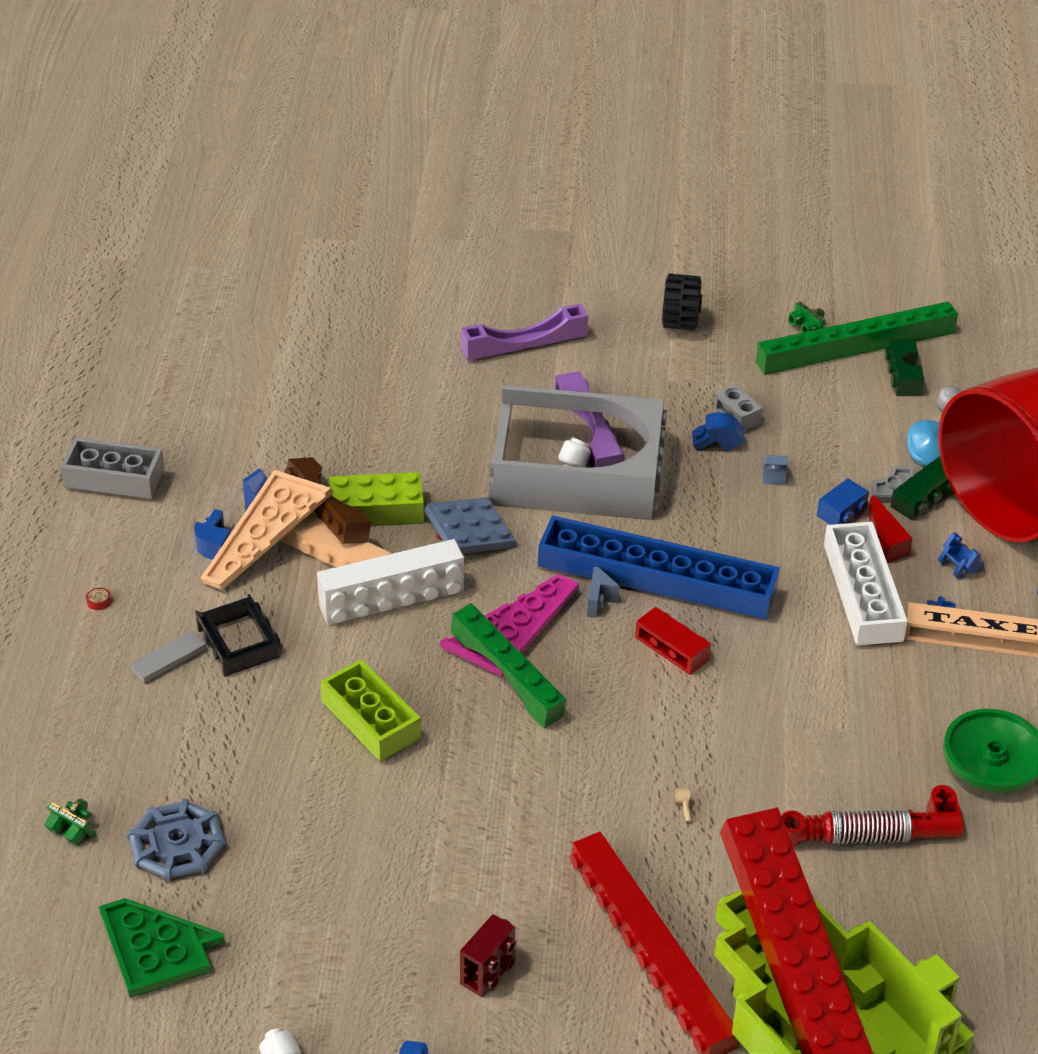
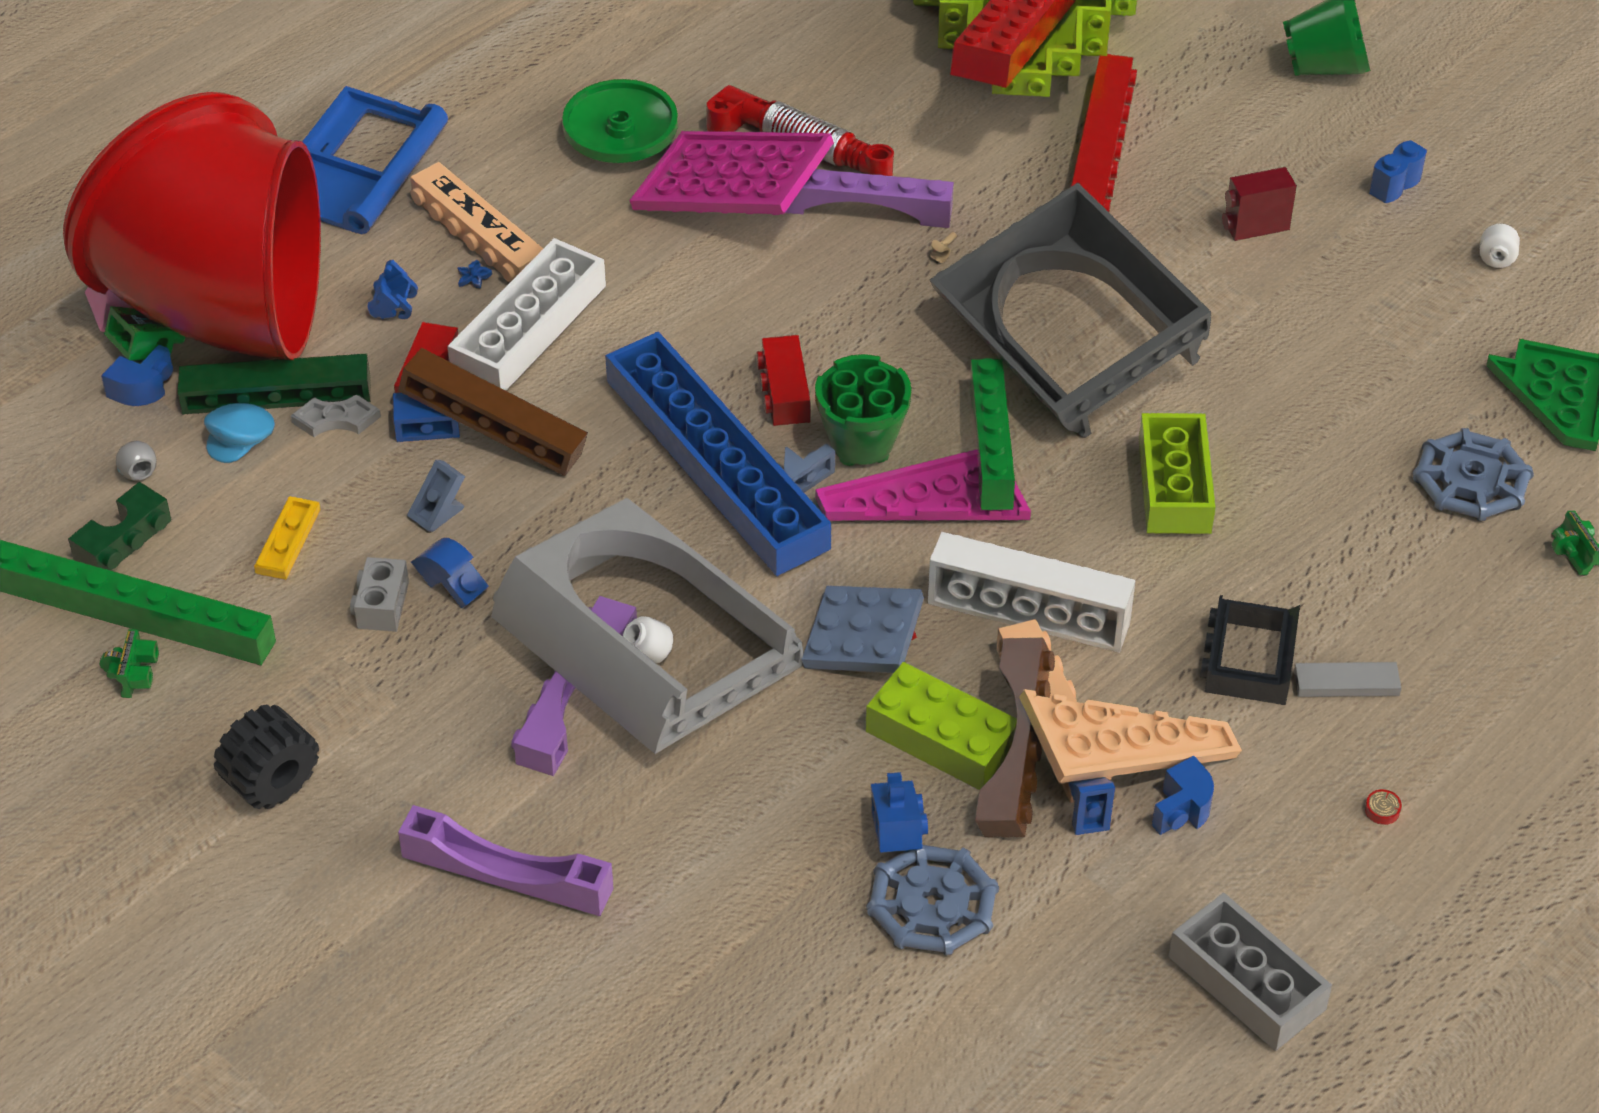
camera: 140 degrees left, 5 degrees up
(296, 431) = (937, 881): none -> sand blue plate
(356, 442) = (898, 814): none -> blue brick
(586, 736) = (1085, 238): none -> dark grey panel
(590, 611) = (862, 407): none -> green cone
(800, 505) = (492, 411): none -> reddish brown brick
(816, 775) = (921, 198): none -> medium lavender arch
(826, 415) = (287, 538): none -> yellow tile
(866, 740) = (732, 172): none -> dark pink plate

